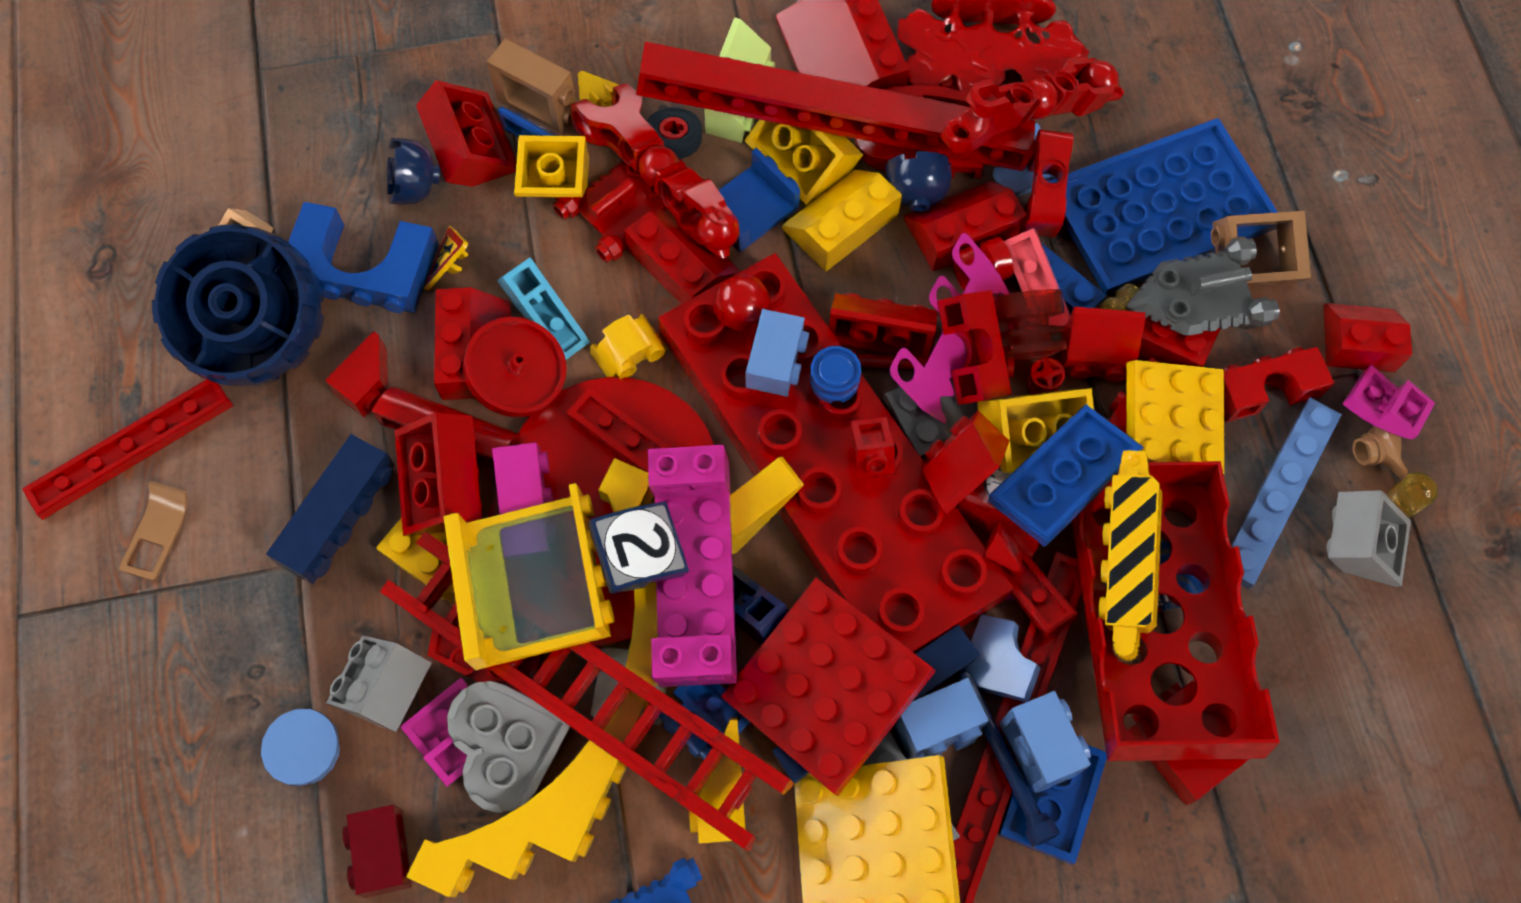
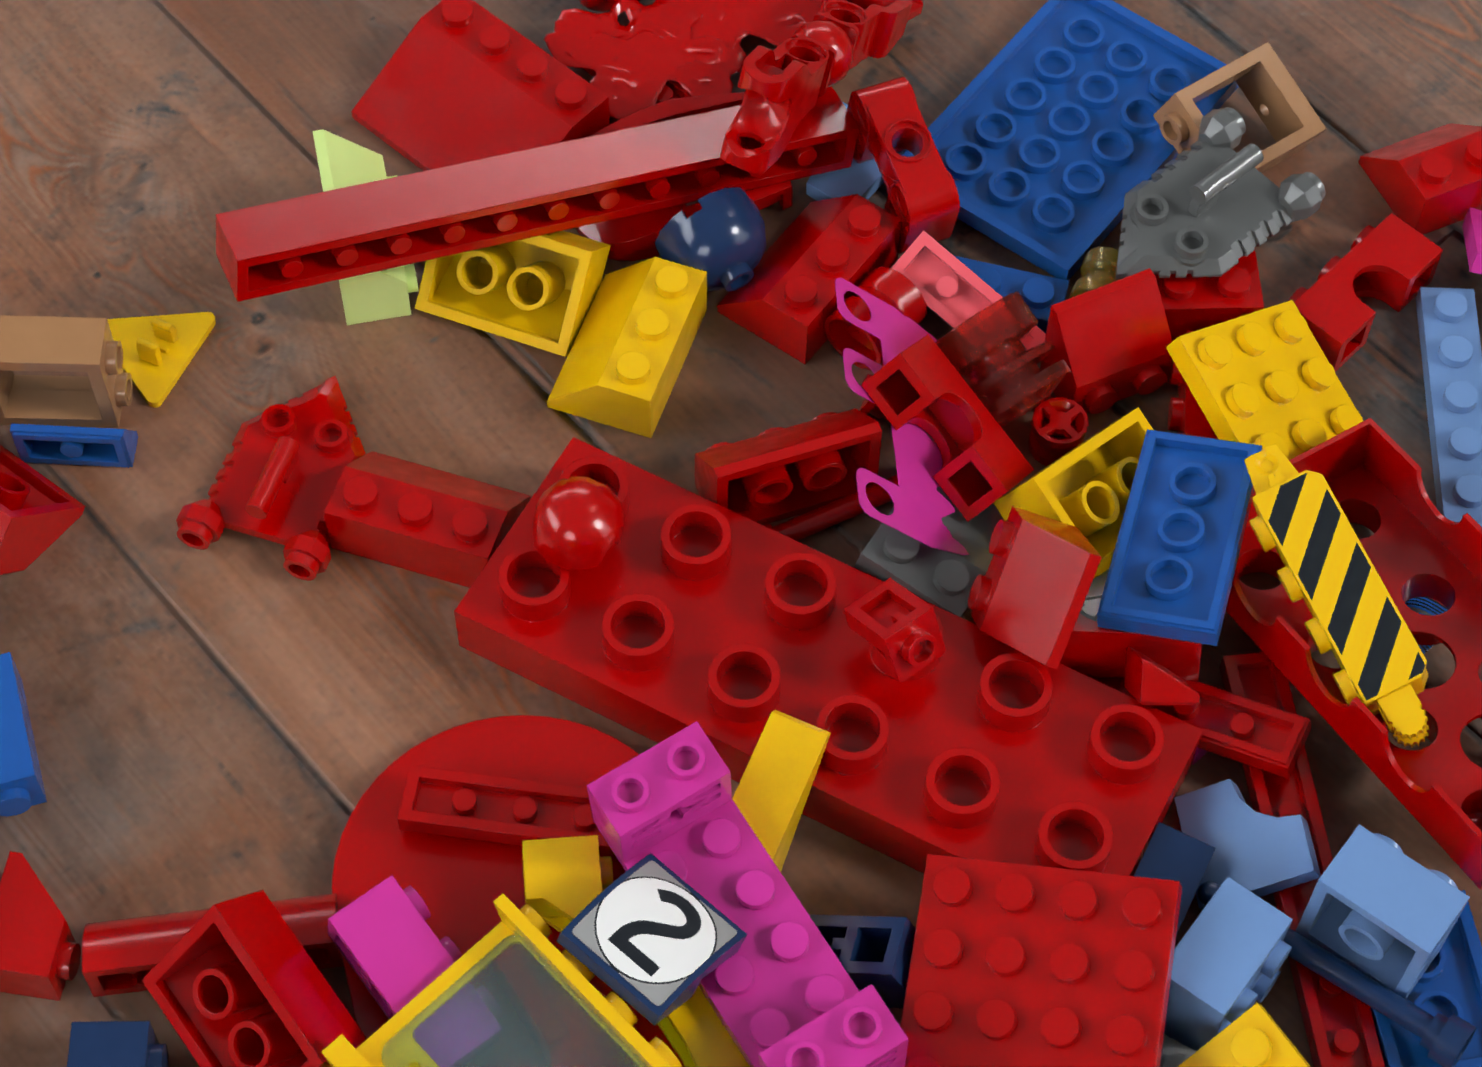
camera: 30 degrees left, 10 degrees down
(451, 248) = (53, 680): yellow piece -> none
(457, 318) = (177, 799): red slope -> none
(514, 366) = (274, 793): red piece -> none
(541, 304) = (256, 690): medium azure slope -> none
(551, 166) = (148, 473): yellow slope -> none
(625, 345) = (421, 682): yellow cylinder -> none
(684, 124) = (302, 344): black bush -> none
(691, 199) = (372, 412): red piece -> none
(760, 198) = (480, 389): blue panel -> none
(775, 353) = (677, 568): medium blue brick -> none
(835, 374) = (779, 556): blue wheel -> none

